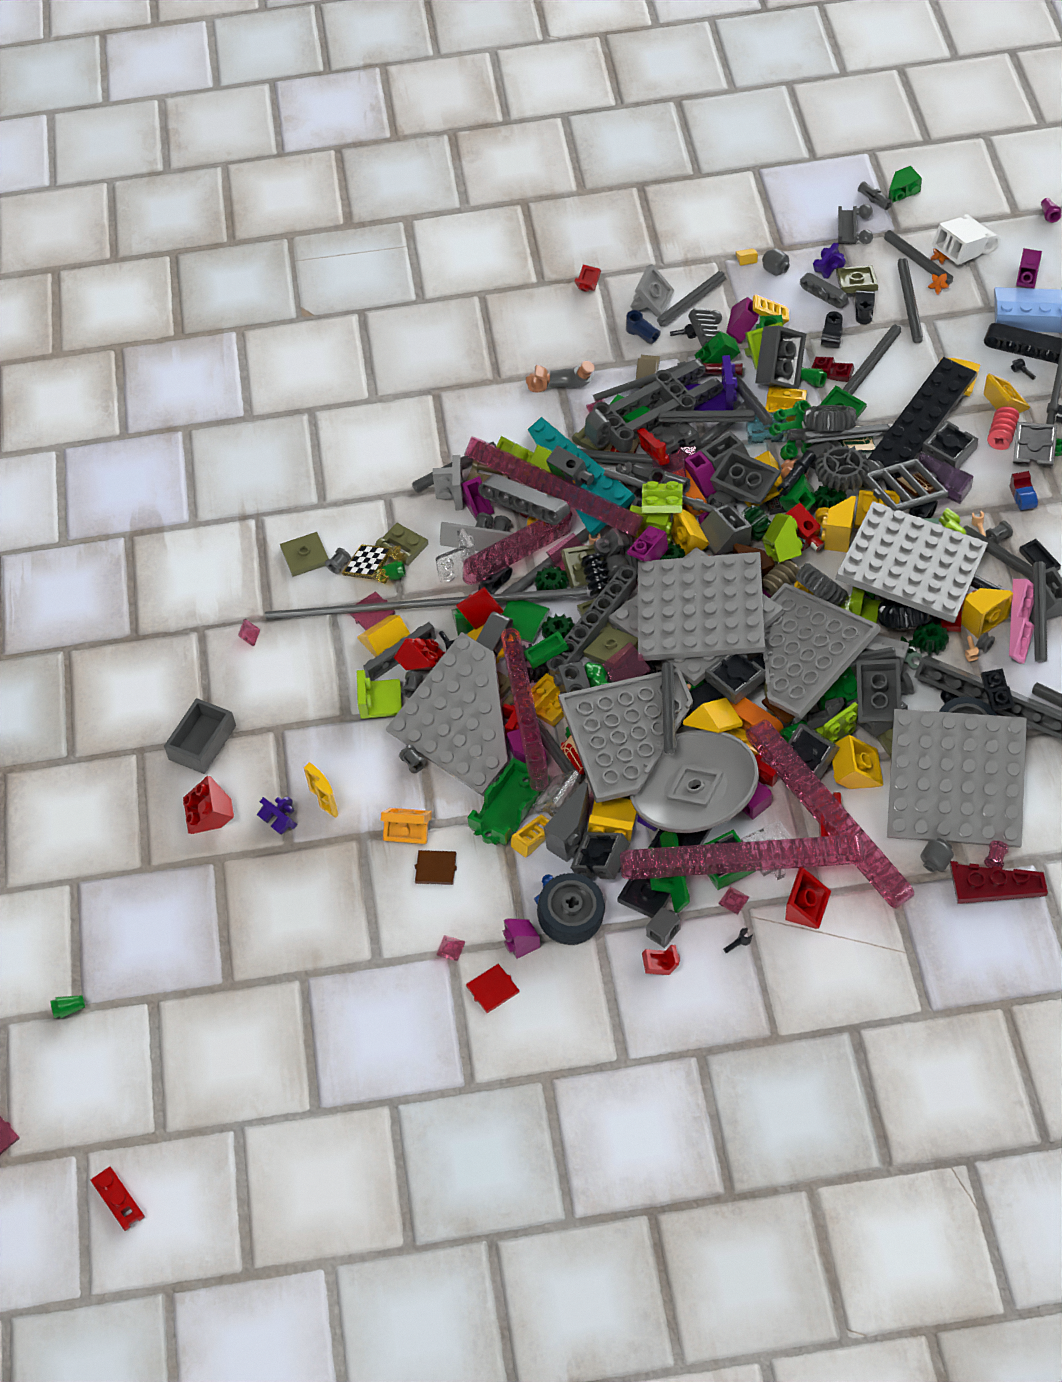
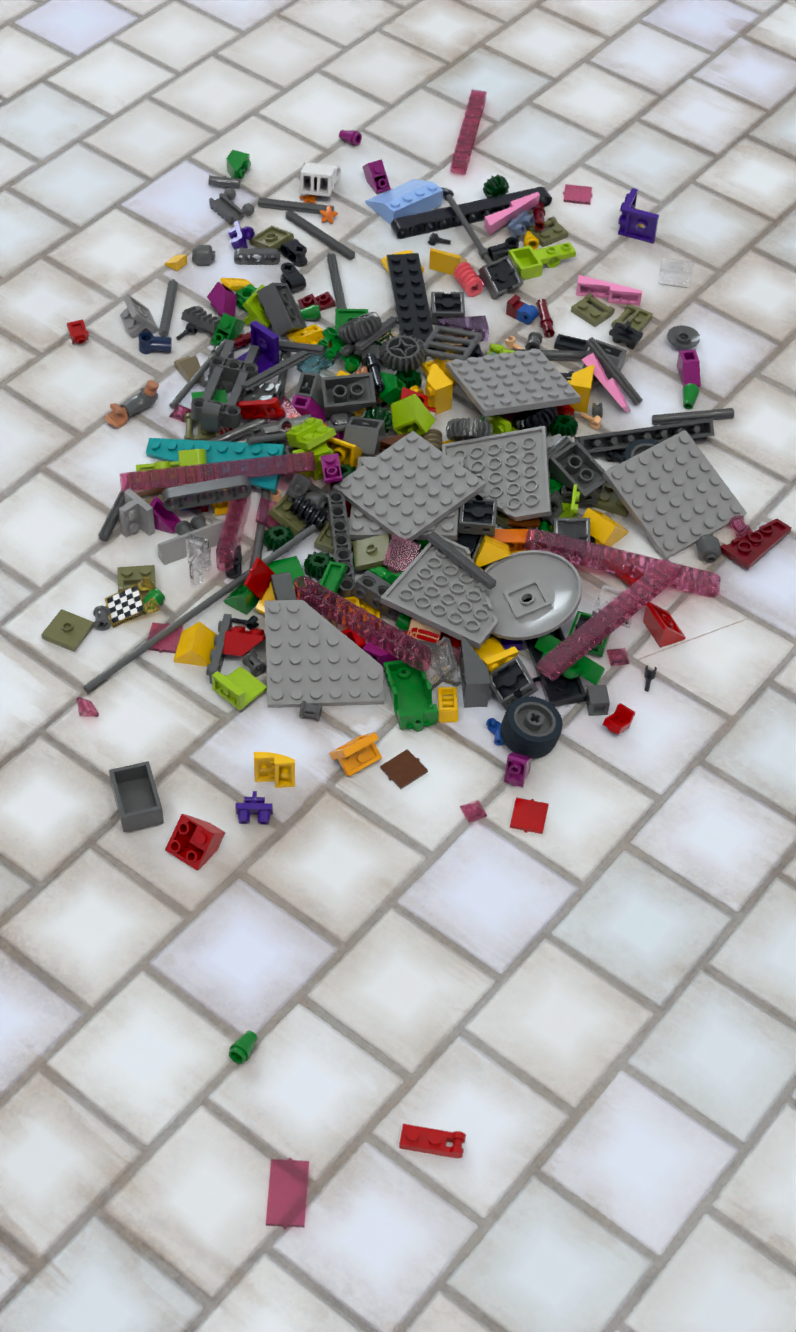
camera: 50 degrees left, 5 degrees down
(569, 467) = (222, 450): dark grey torso -> none
(997, 689) = (645, 427): black slope -> none
(1036, 518) = (546, 322): none -> dark red pin

